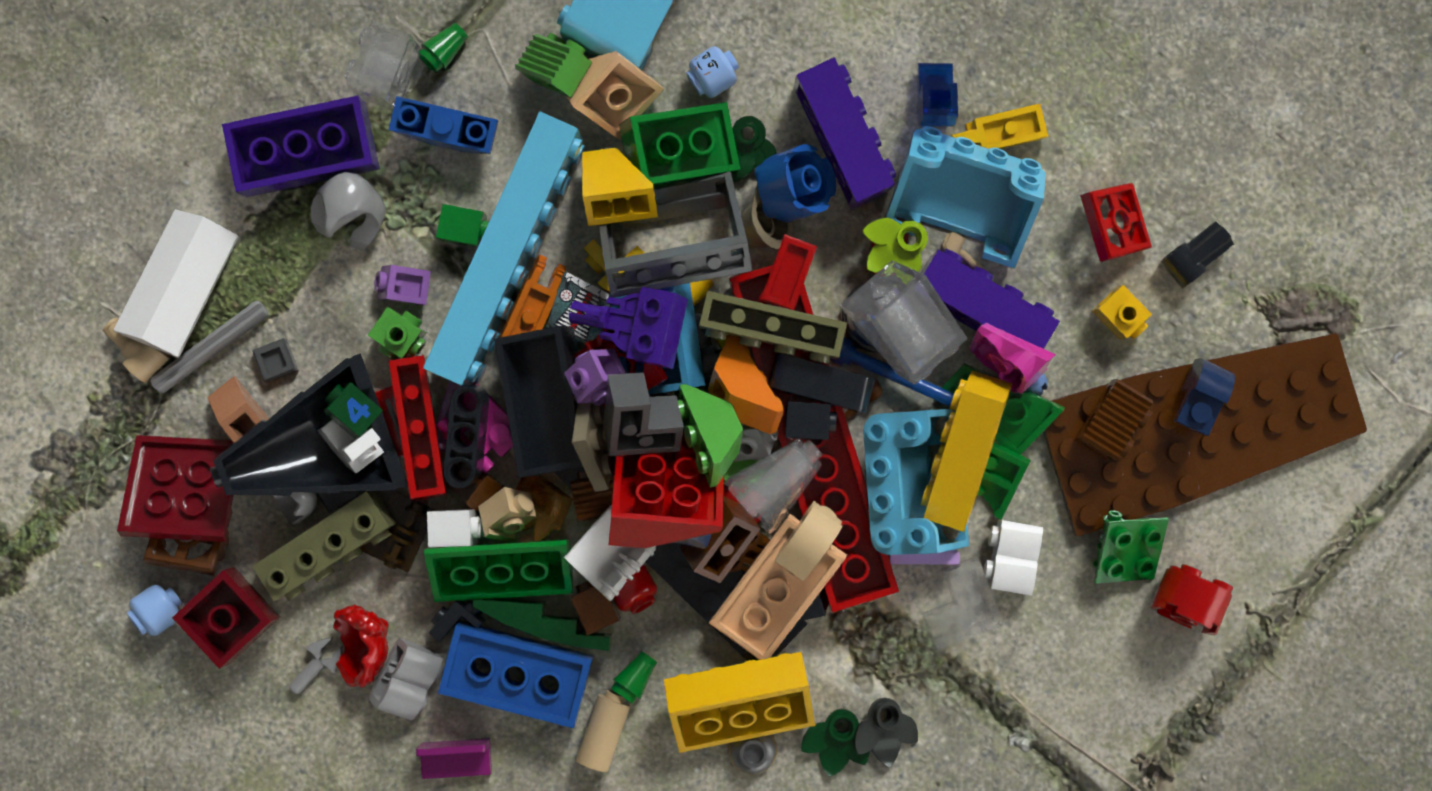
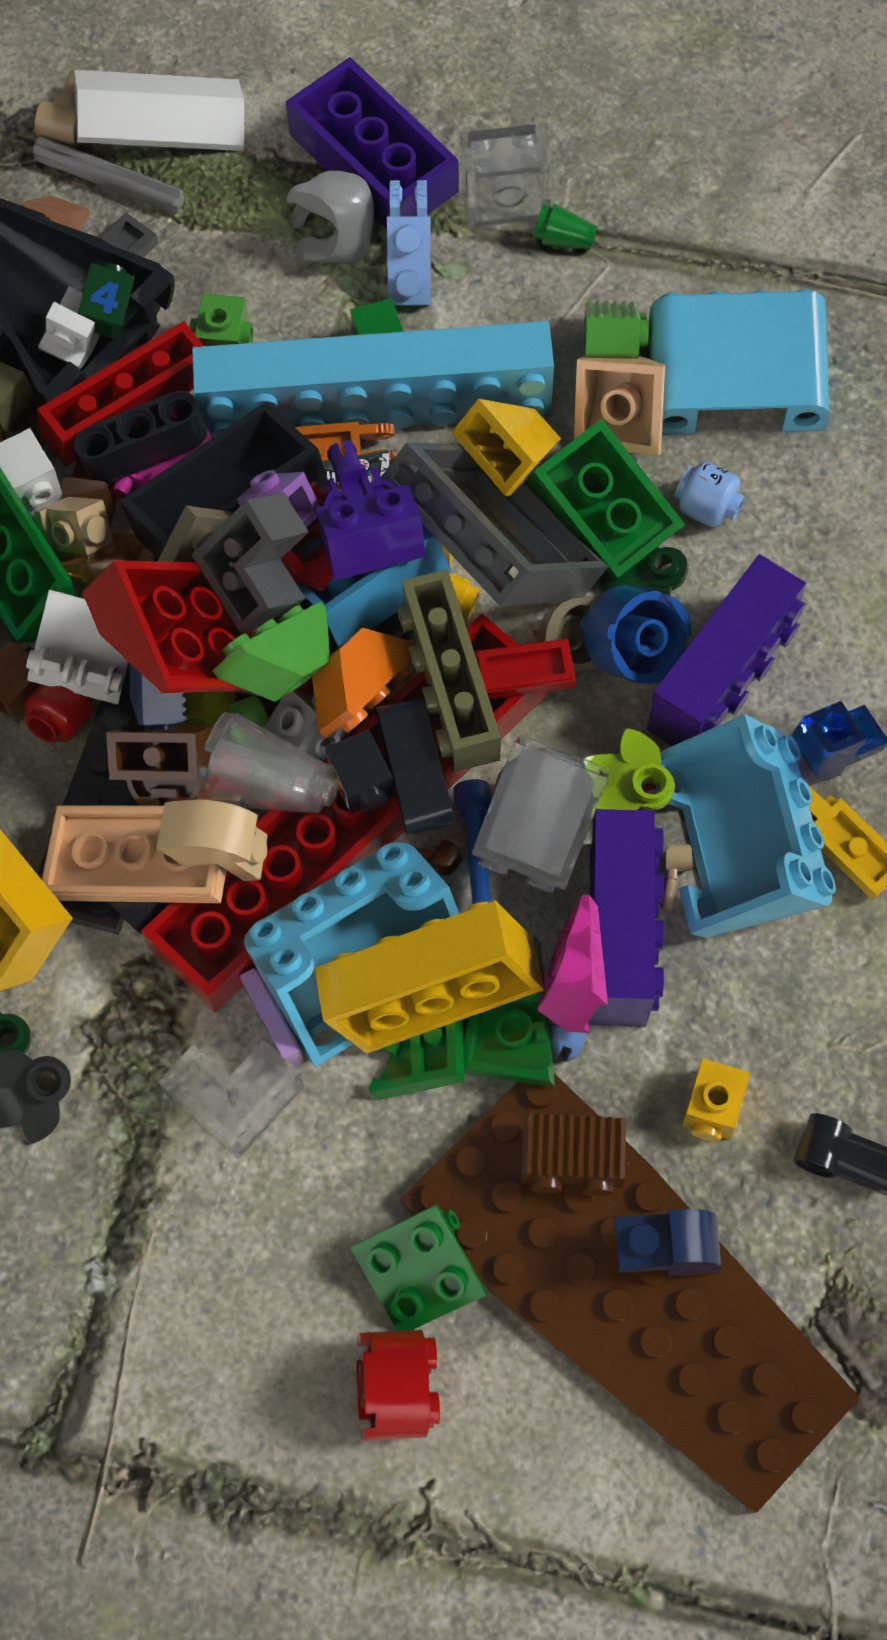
camera: 65 degrees right, 20 degrees down
(402, 284) = (281, 312): medium lavender bracket -> none
(408, 169) = (409, 249): none -> light blue hinge
(443, 126) = (476, 259): blue slope -> none
(1013, 557) = (330, 1130): white brick -> none
(1132, 217) = (849, 1002): red piece -> none

